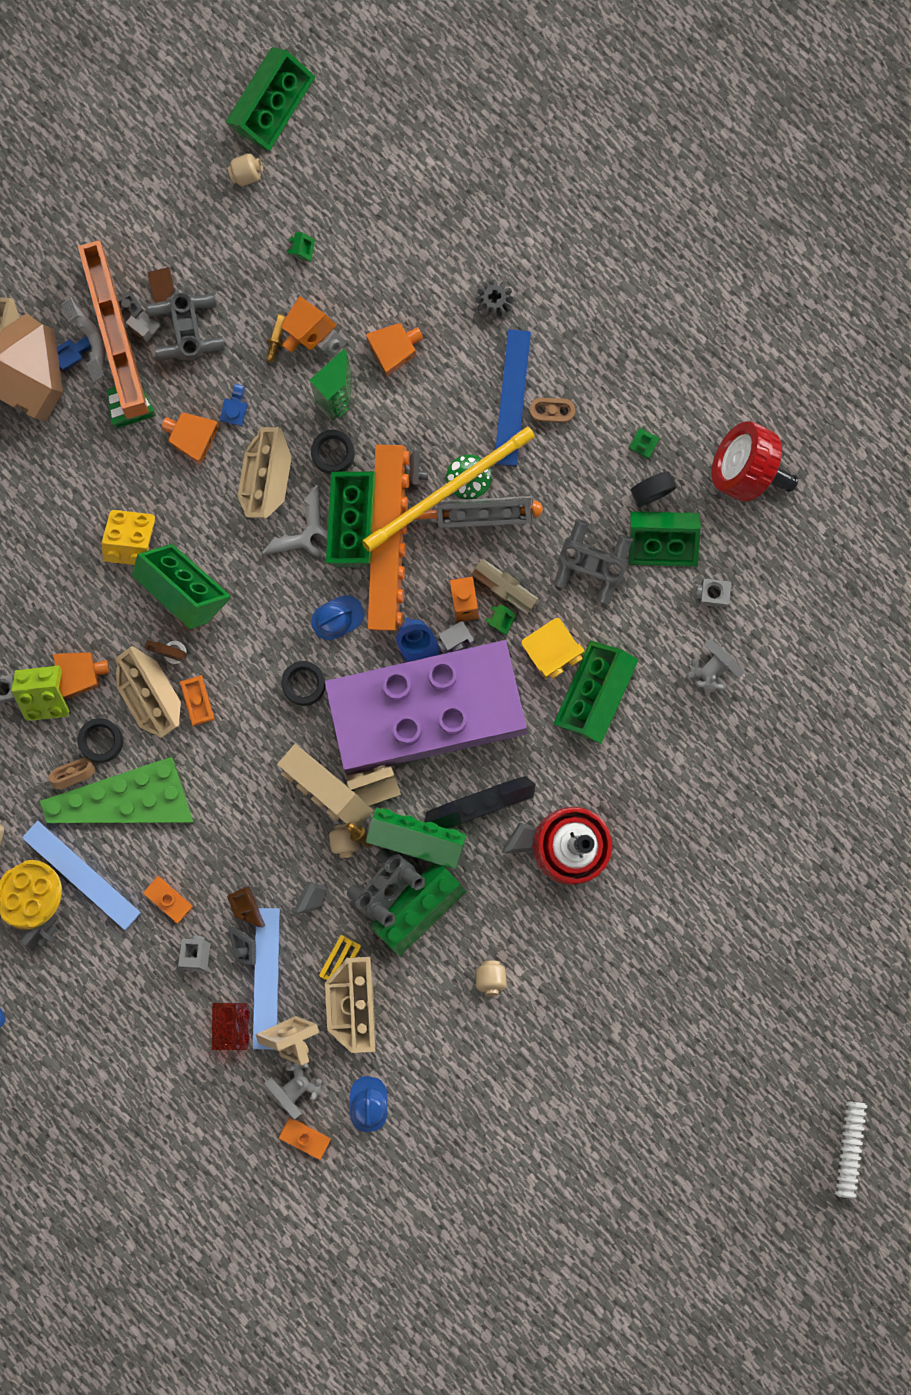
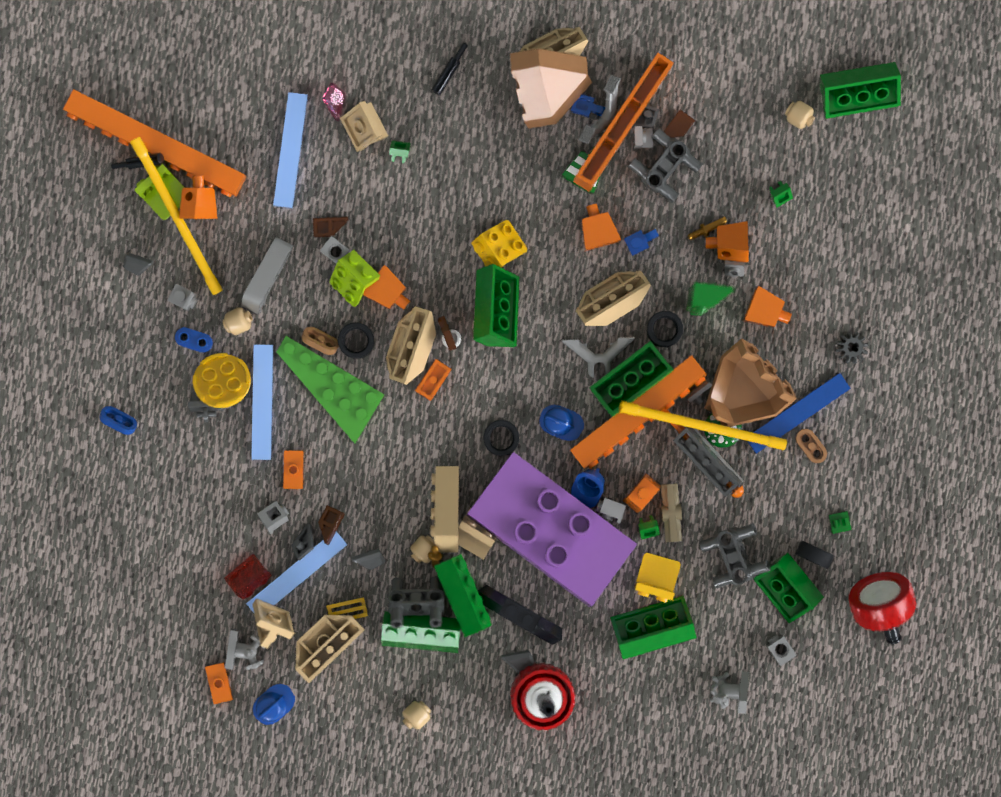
camera: 40 degrees right, 5 degrees up
(449, 422) = (747, 387): none -> medium nougat panel

